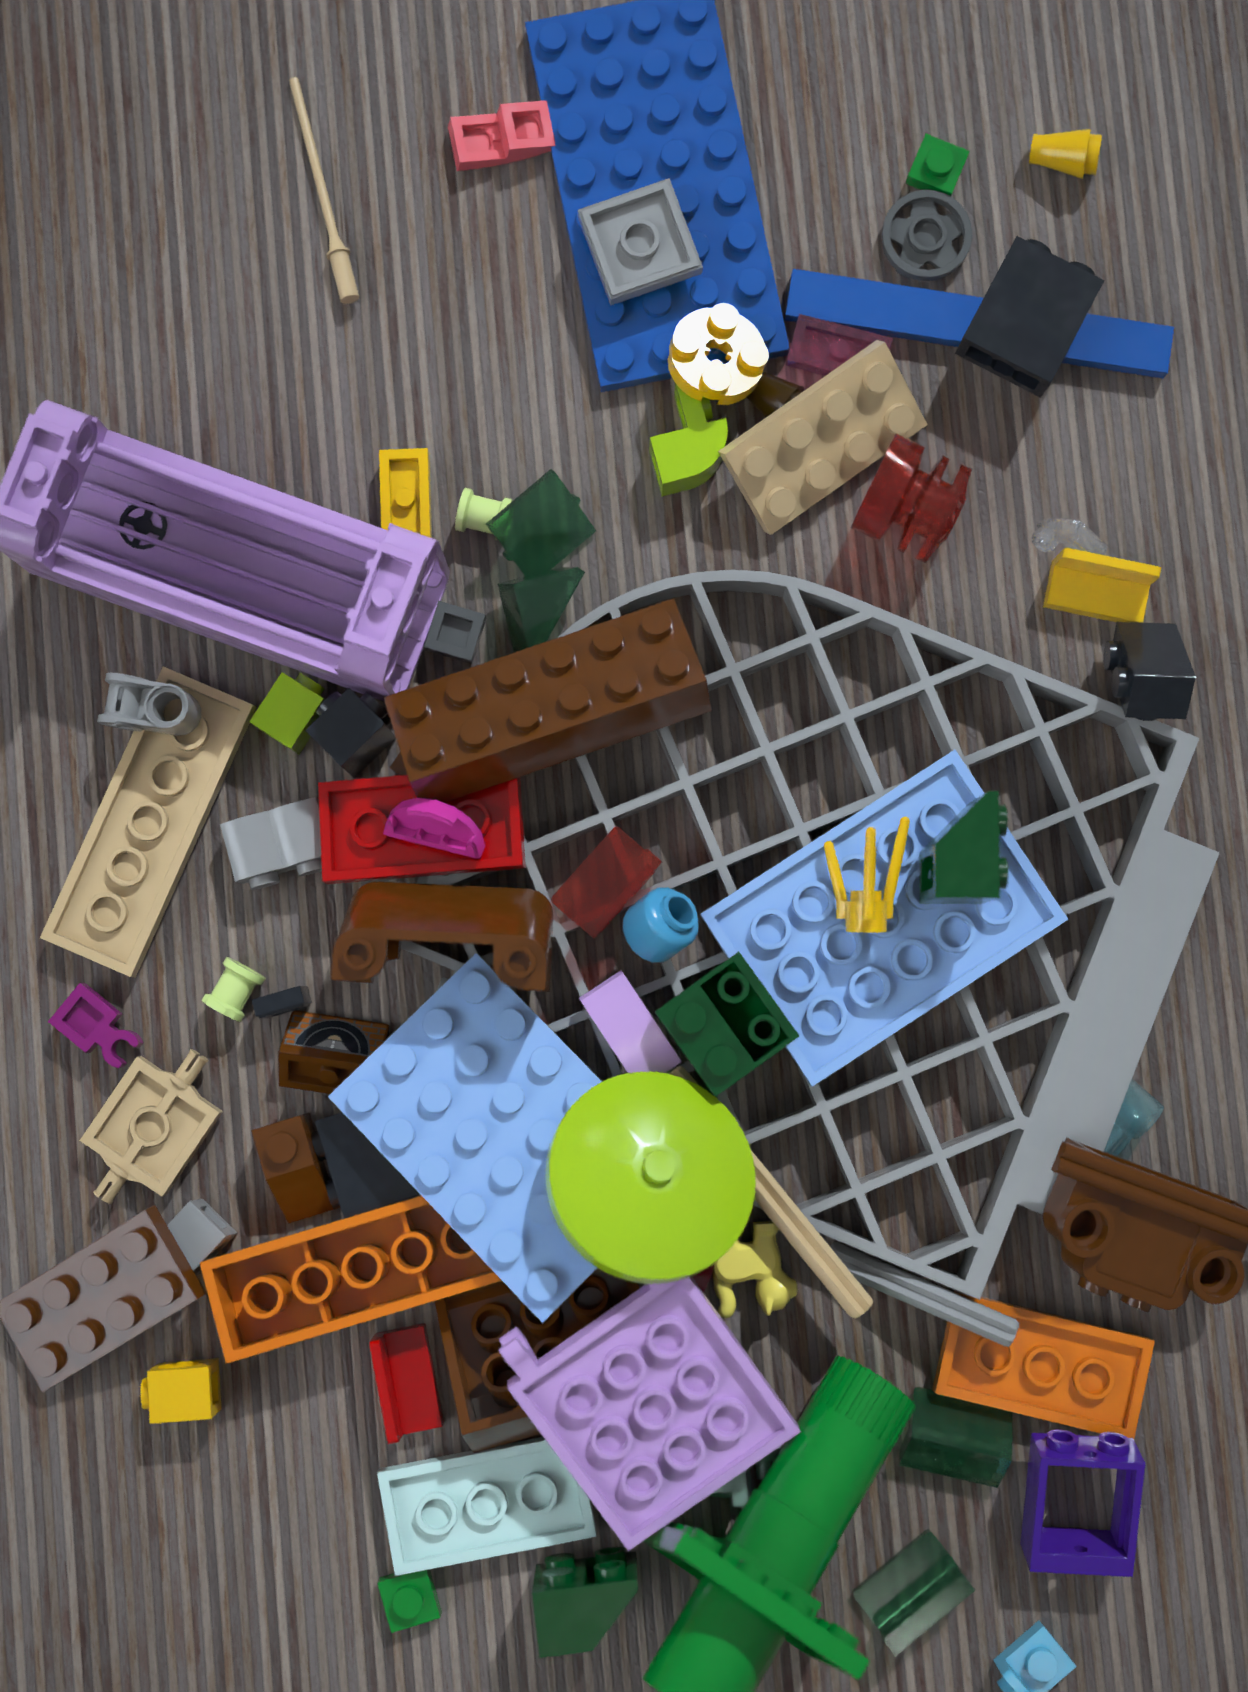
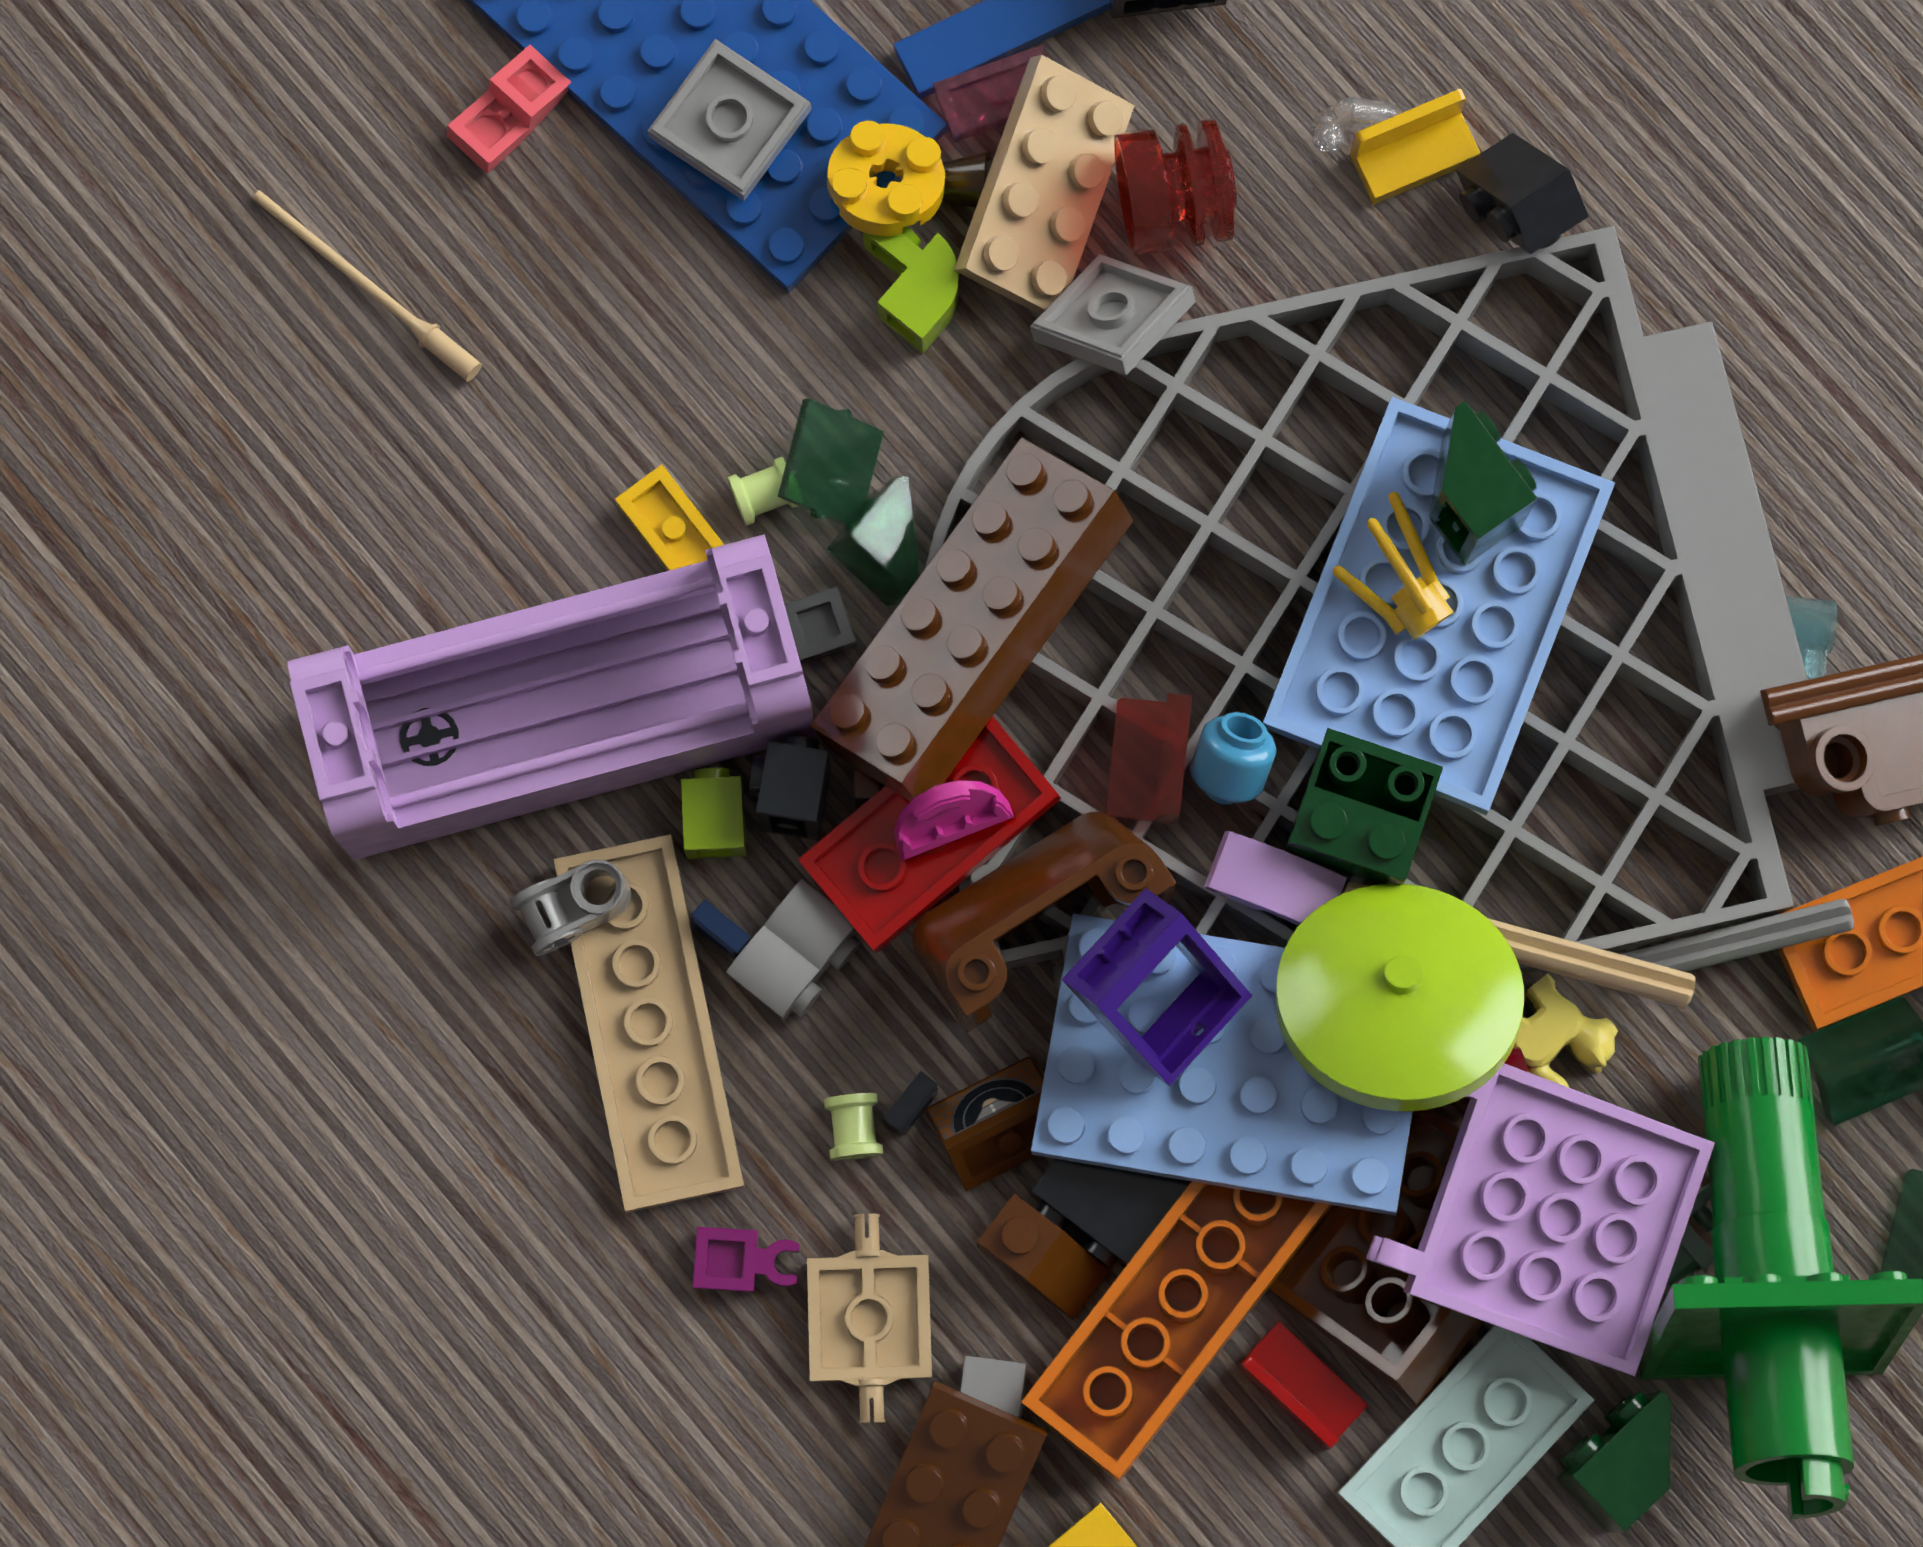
camera: 35 degrees left, 5 degrees down
(239, 791) = (719, 929): none -> dark blue tile
(472, 1019) = (1125, 959): none -> dark purple window
(805, 558) = (1112, 314): none -> light grey plate

